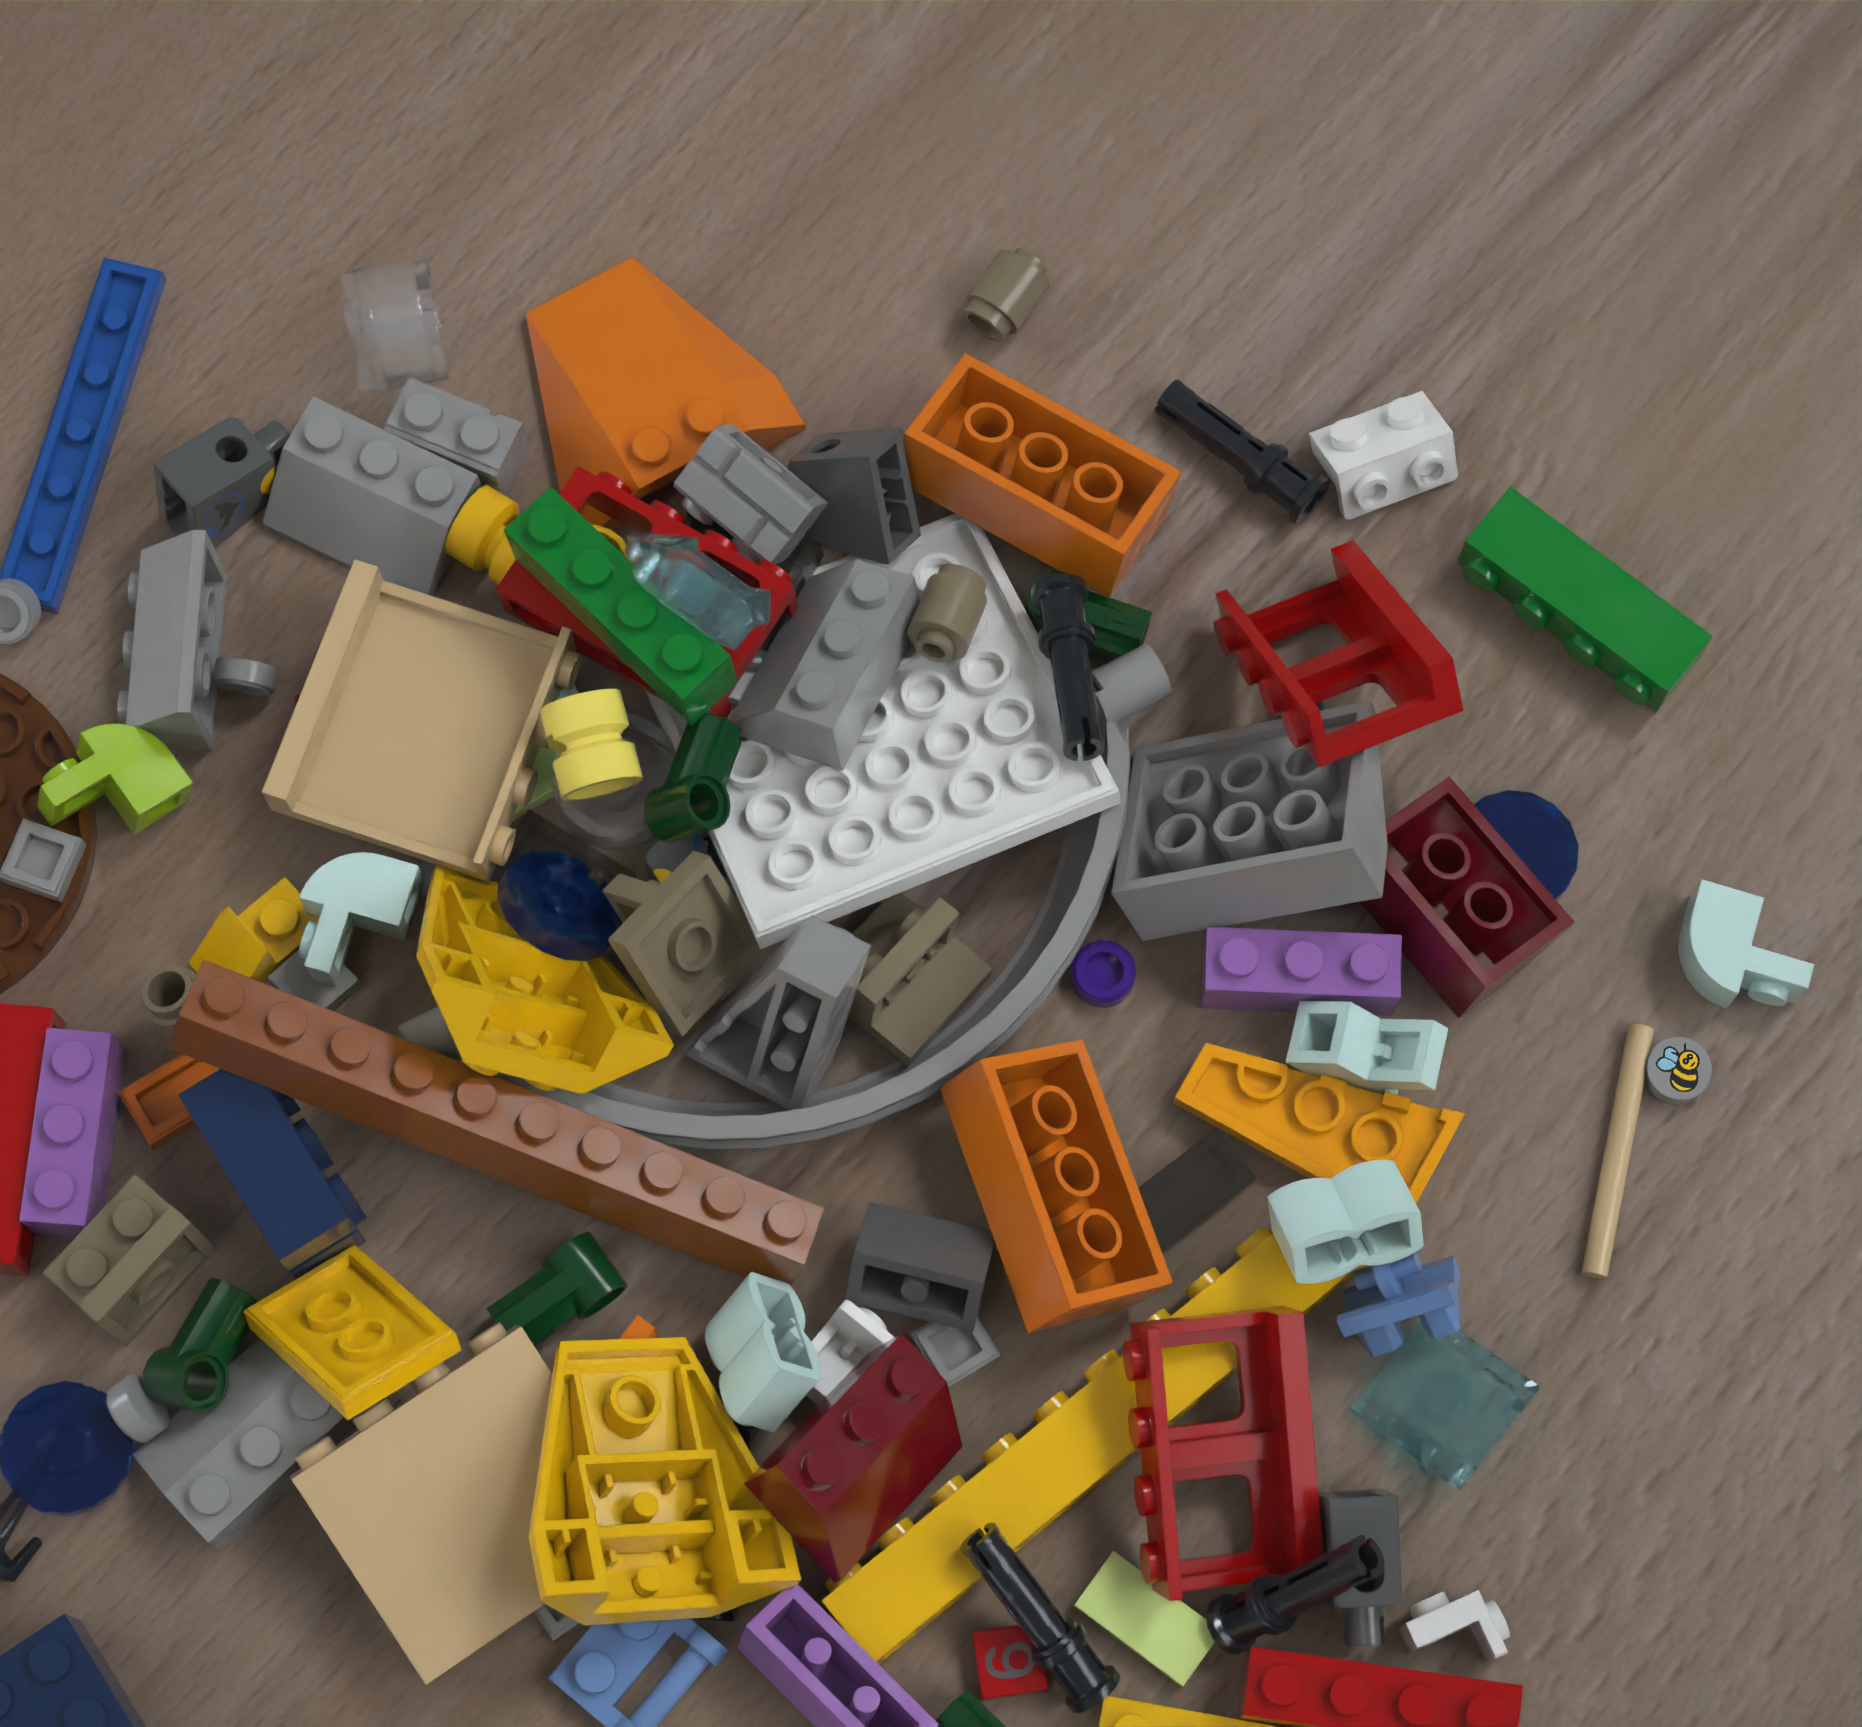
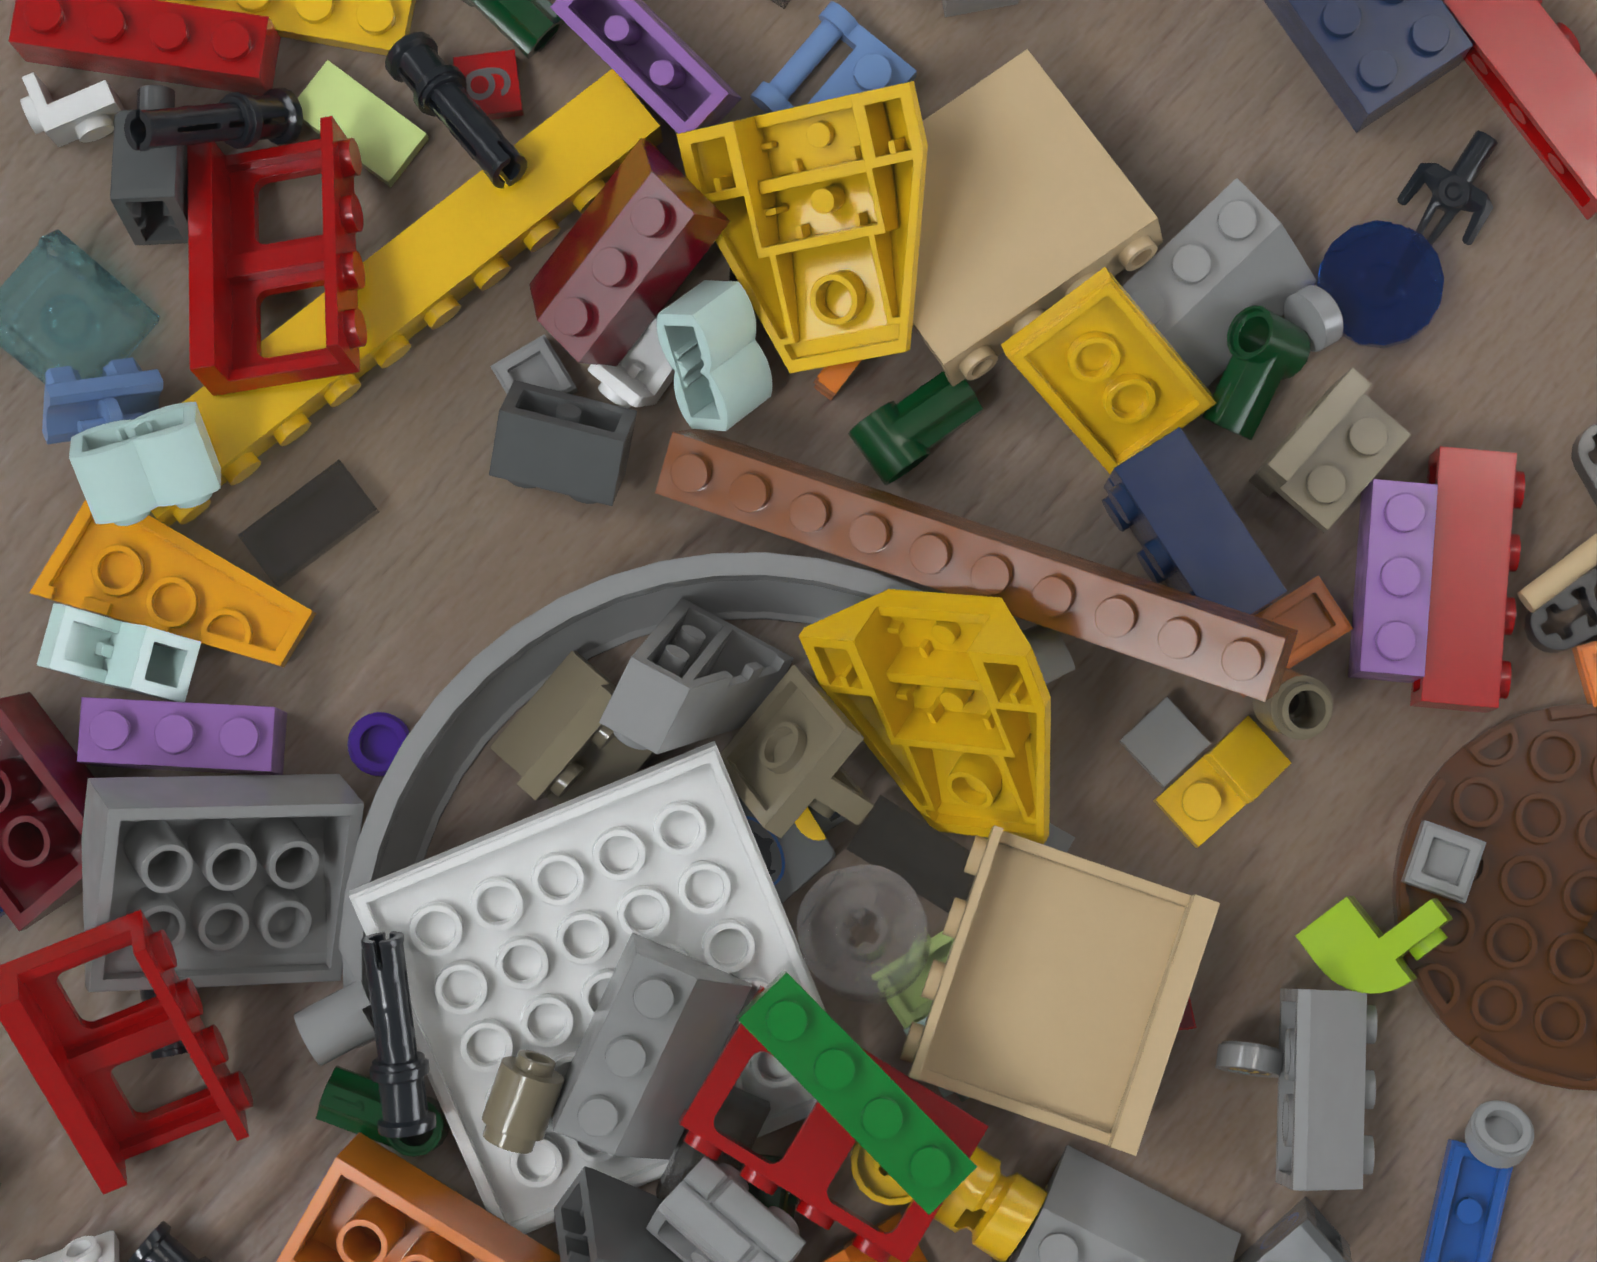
camera: 175 degrees left, 10 degrees up
(352, 893) = (1121, 818): light aqua brick -> none
(557, 905) = (919, 797): clear blue tile -> none
(591, 745) = (884, 945): light yellow wheel -> none
(695, 788) = (781, 898): dark green piece -> none
(697, 587) = (776, 1099): clear light blue slope -> none
(1055, 1185) = (429, 514): orange brick -> none

